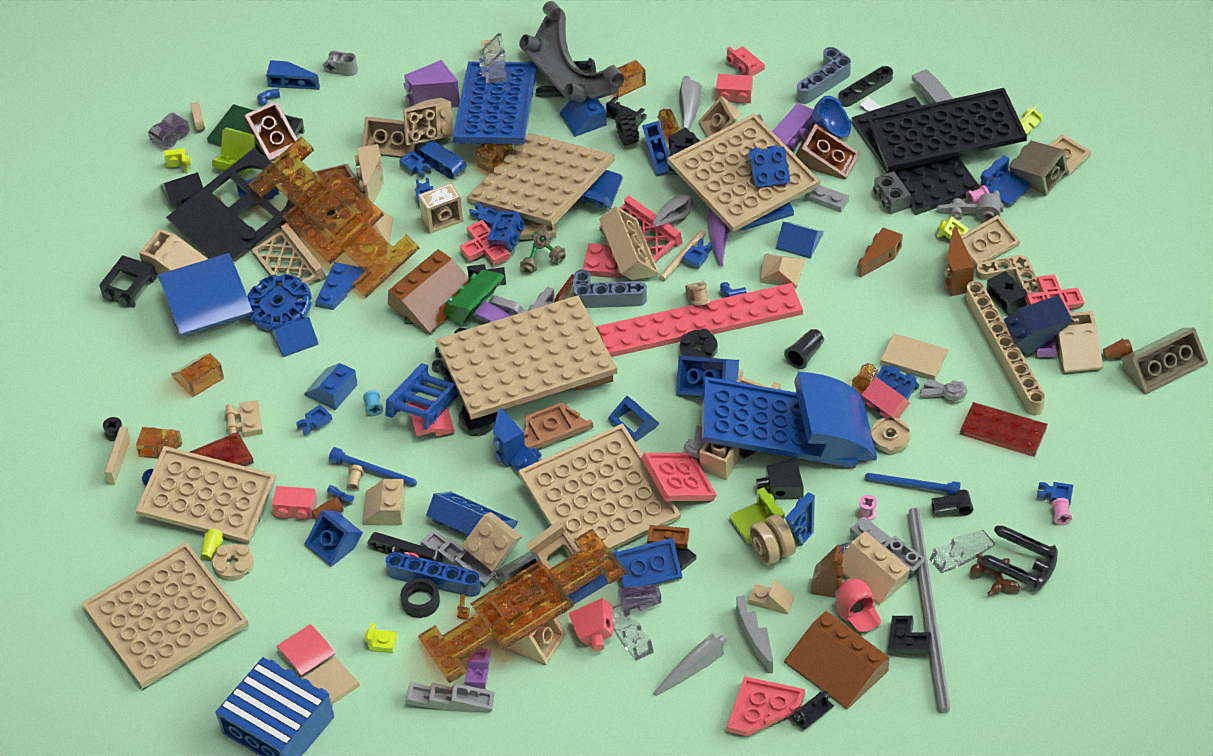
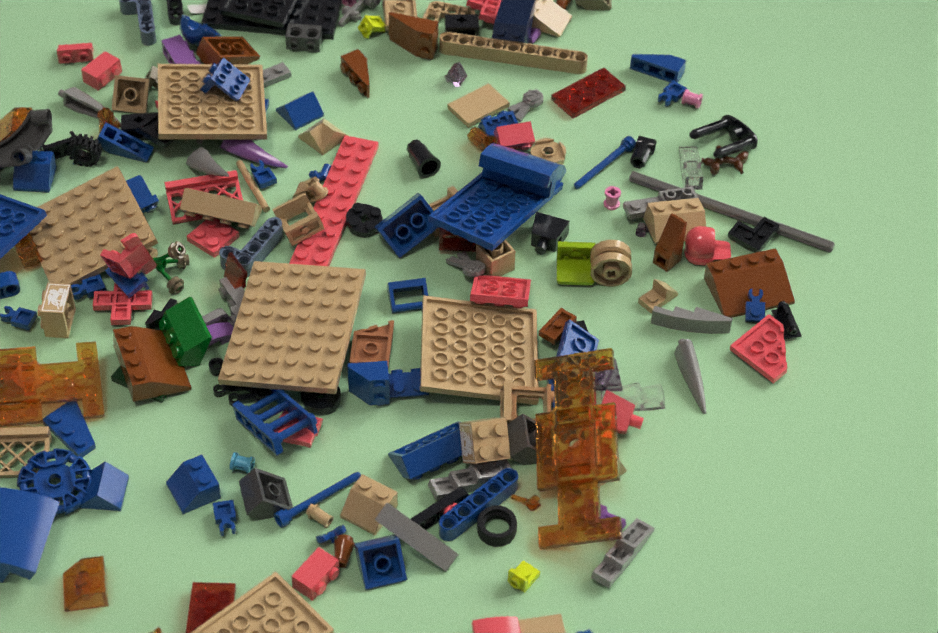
camera: 65 degrees left, 0 degrees up
(250, 418) = (176, 567): tan plate -> none
(351, 432) = (264, 494): none -> dark grey slope
(365, 551) = (416, 537): none -> light grey slope
(507, 215) = (131, 259): none -> coral plate
(649, 310) = (305, 227): none -> tan window
(802, 518) = (613, 227): blue wing -> none
(807, 677) = (755, 309): none -> blue plate
(938, 320) = (456, 74): none -> tile
(1087, 468) = (659, 66): none -> blue slope

